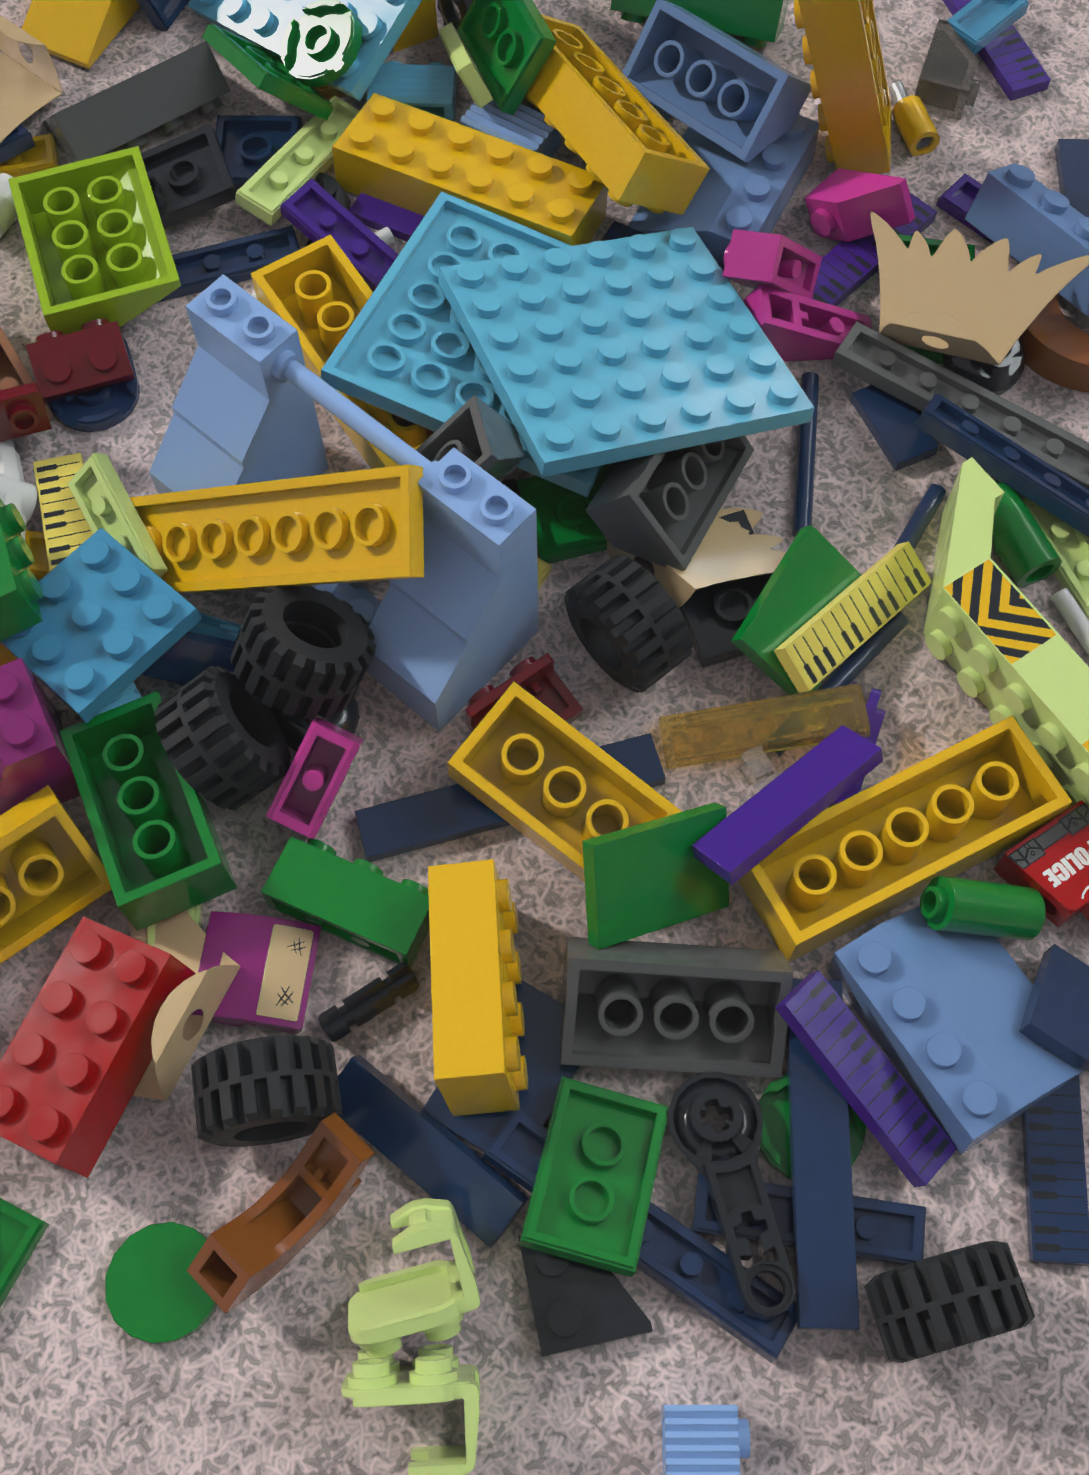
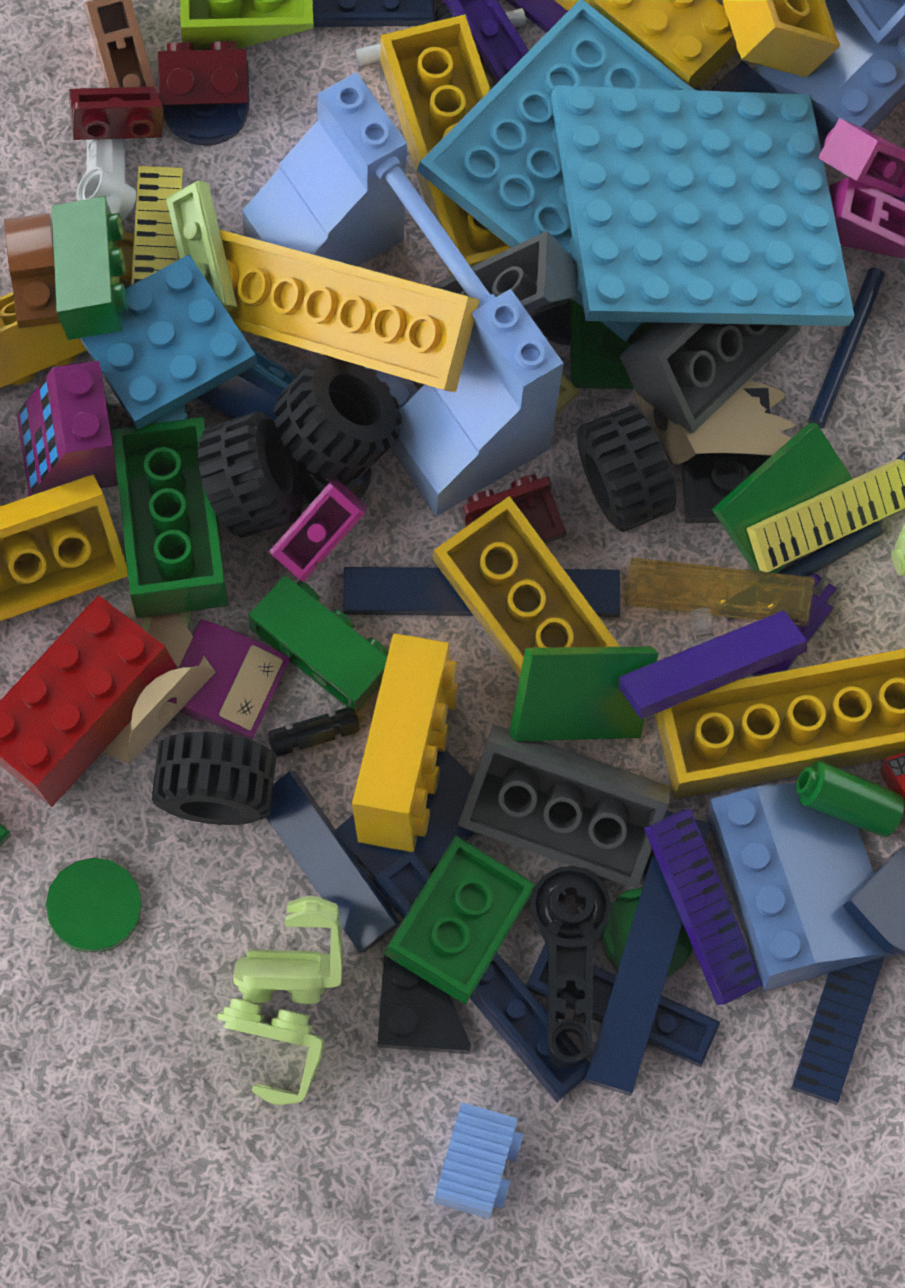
camera: 10 degrees right, 5 degrees up
(285, 1219) = (193, 888): dark orange arch -> none
(948, 1301) = (707, 1089): black tyre -> none

